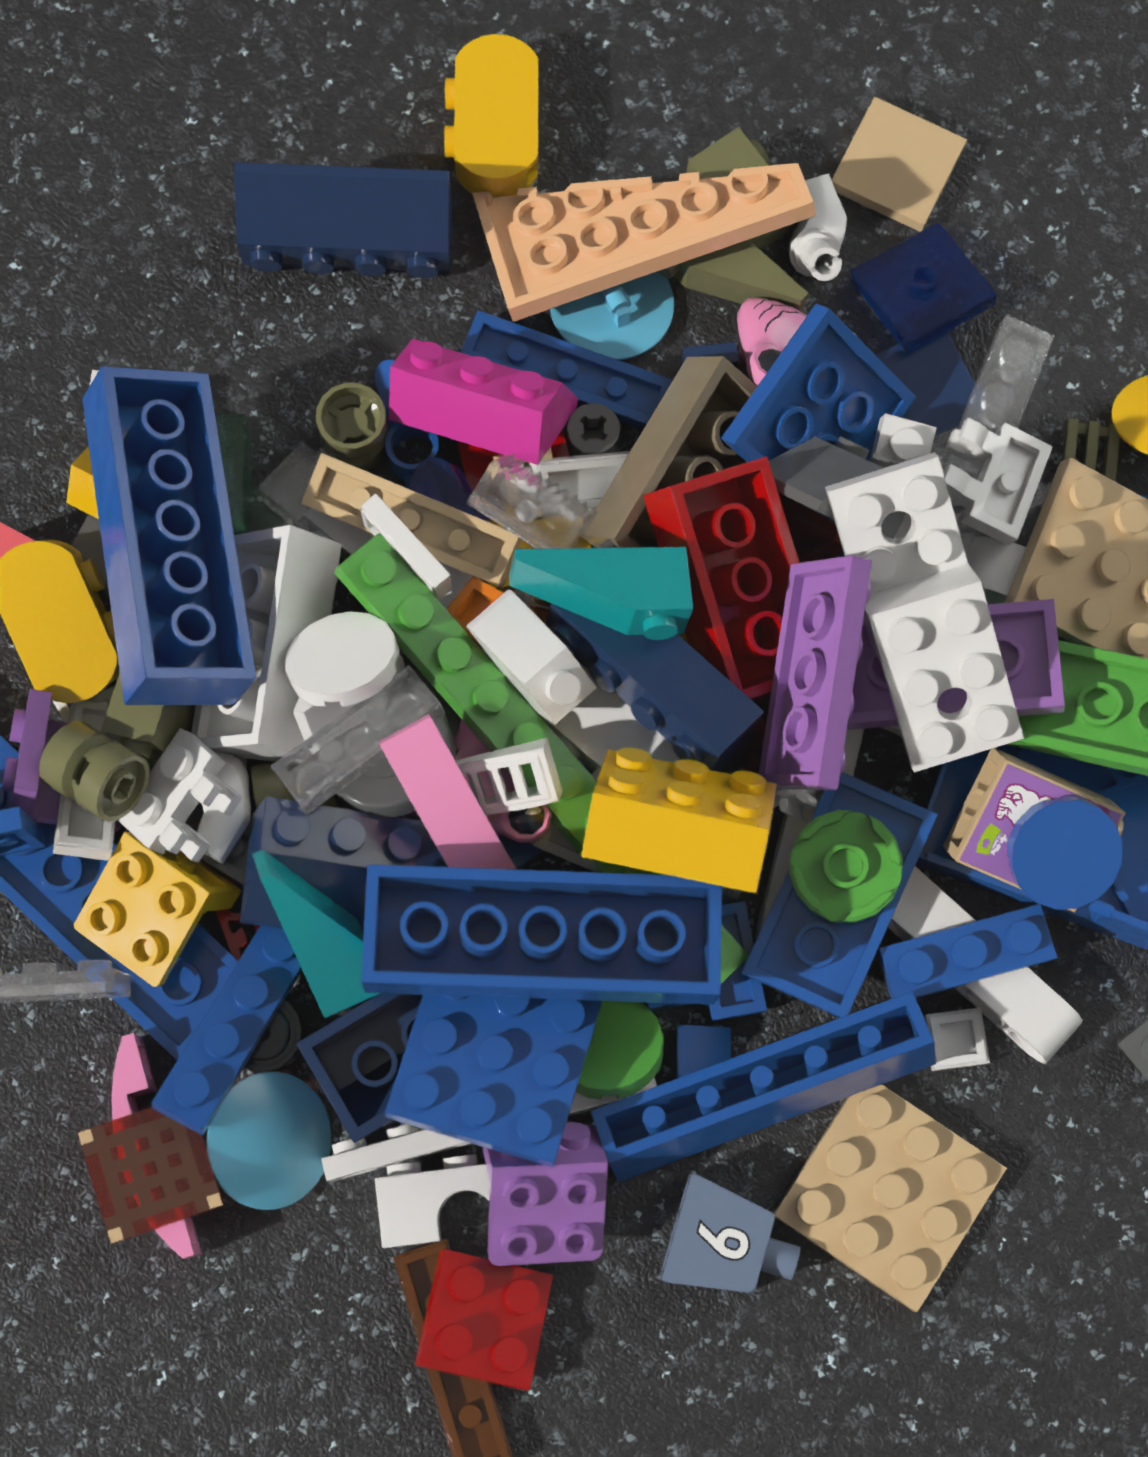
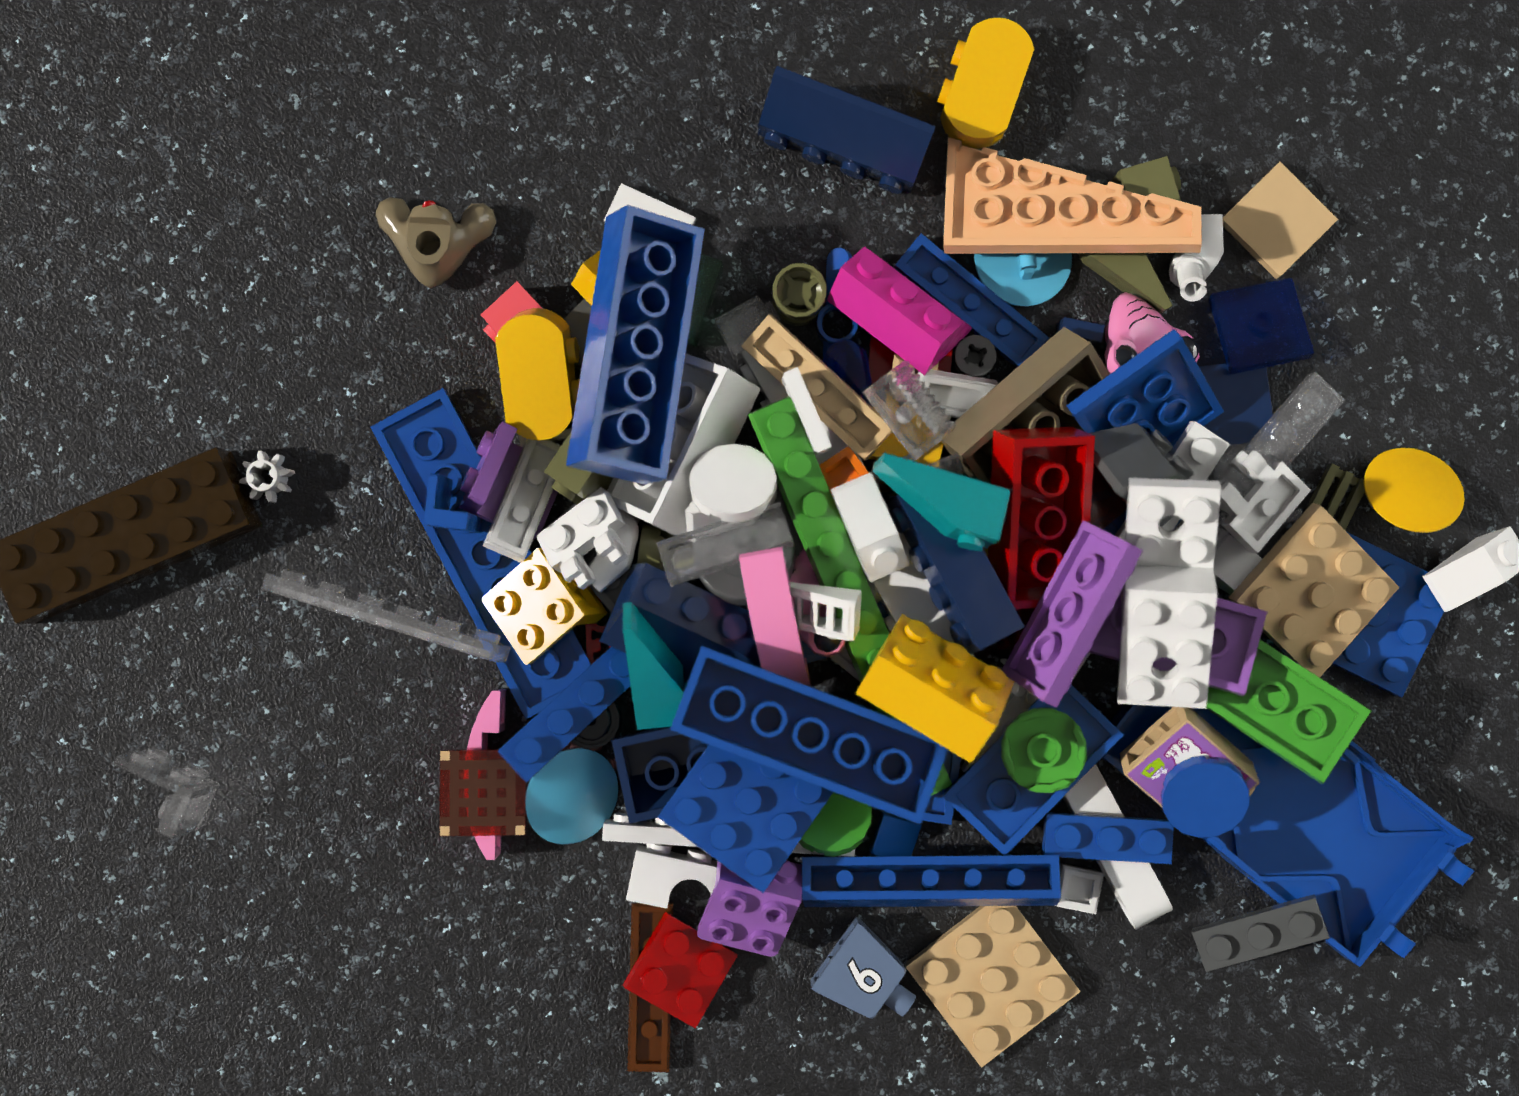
camera: 25 degrees right, 10 degrees up
(94, 771) = (529, 501): olive wheel -> none

